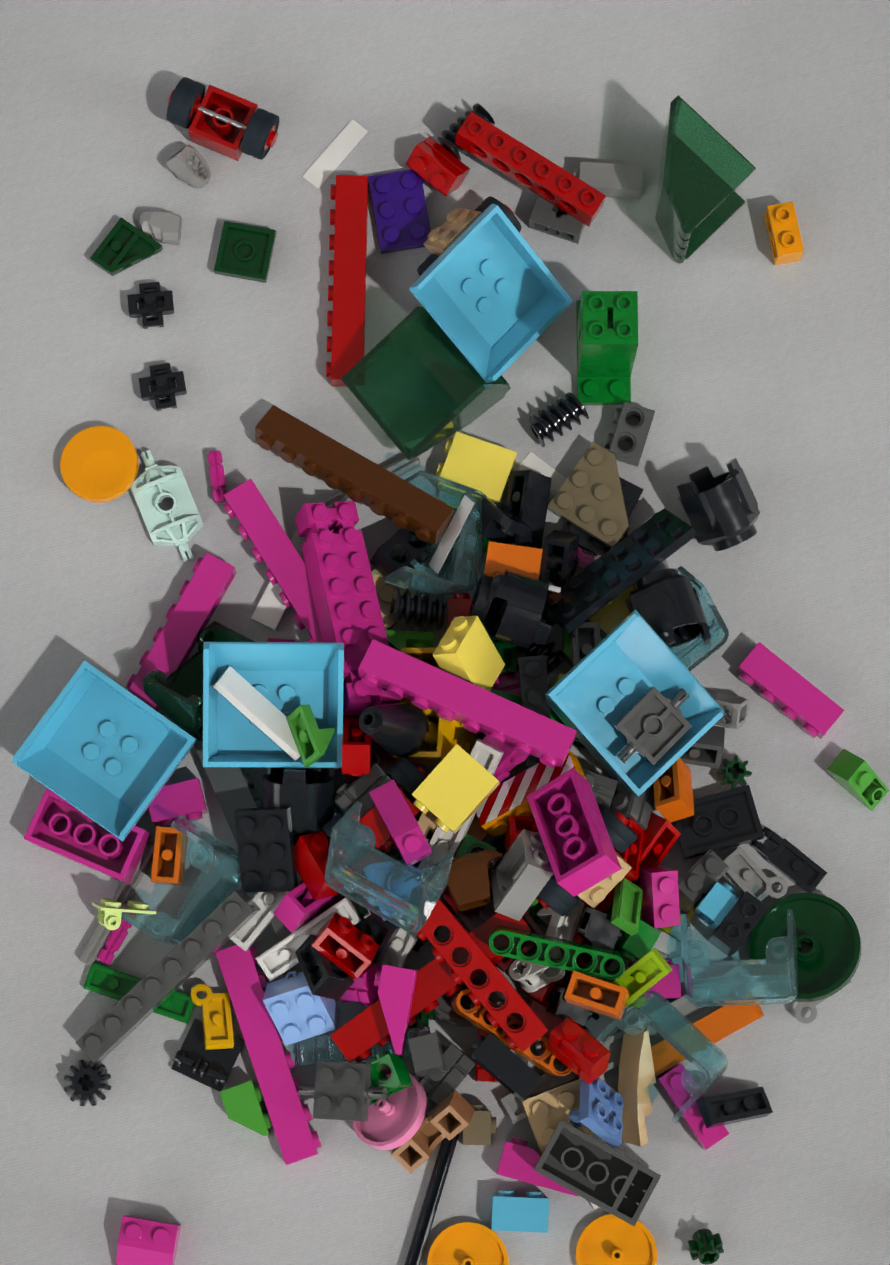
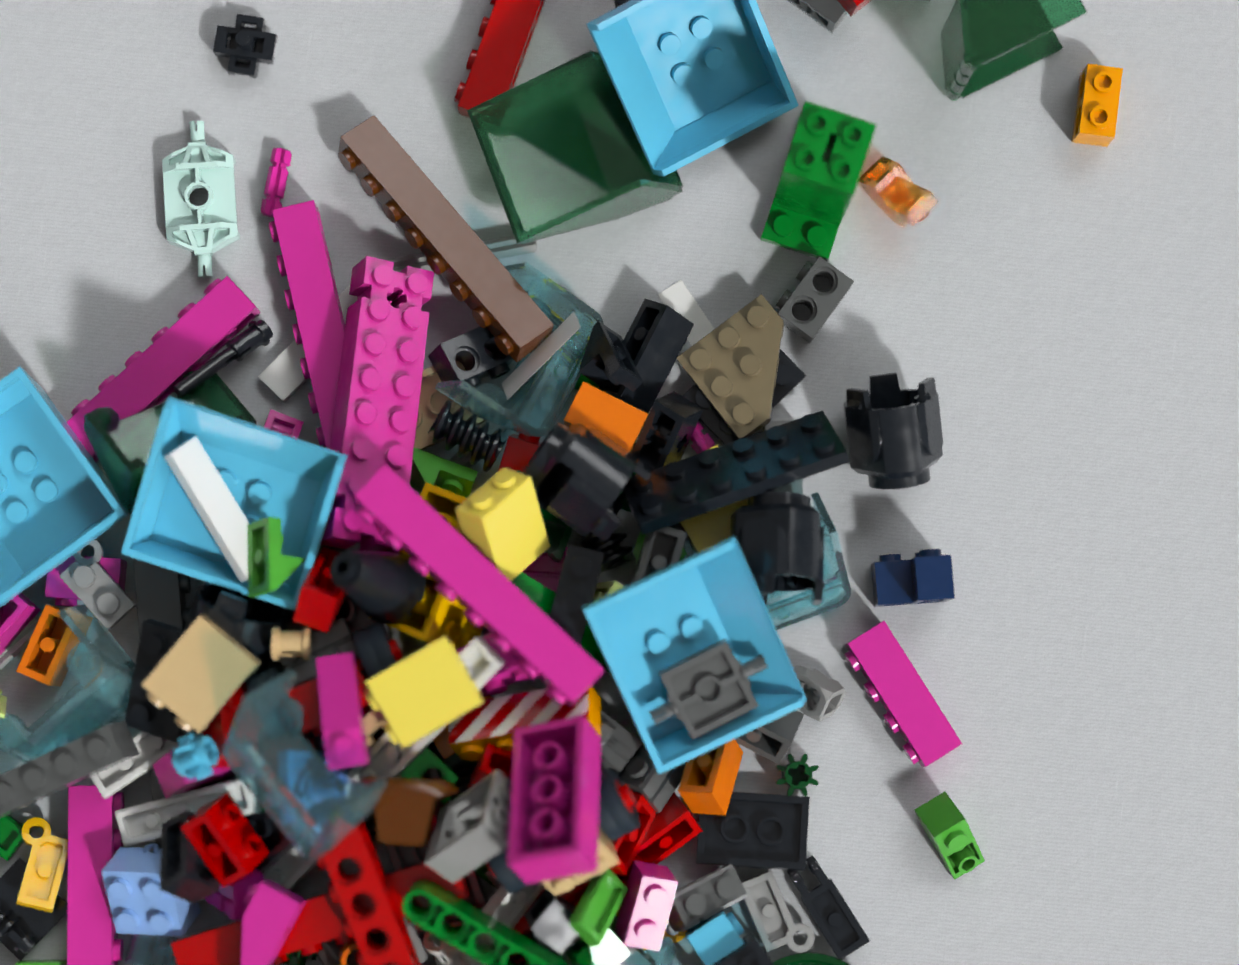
camera: 15 degrees right, 5 degrees up
(99, 464) = (132, 118): light orange piece -> none
(189, 803) = (97, 588): none -> light grey hinge
(239, 589) = (237, 348): none -> black pin
(289, 832) = (200, 674): none -> tan panel
(305, 891) = (195, 756): none -> medium azure gear
(346, 791) = (291, 643): none -> tan bush
(477, 465) = (605, 277): light yellow brick -> none
(557, 418) = (727, 249): black piece -> none
(664, 341) = (896, 193): none -> clear orange brick
(771, 608) = (913, 581): none -> dark blue brick

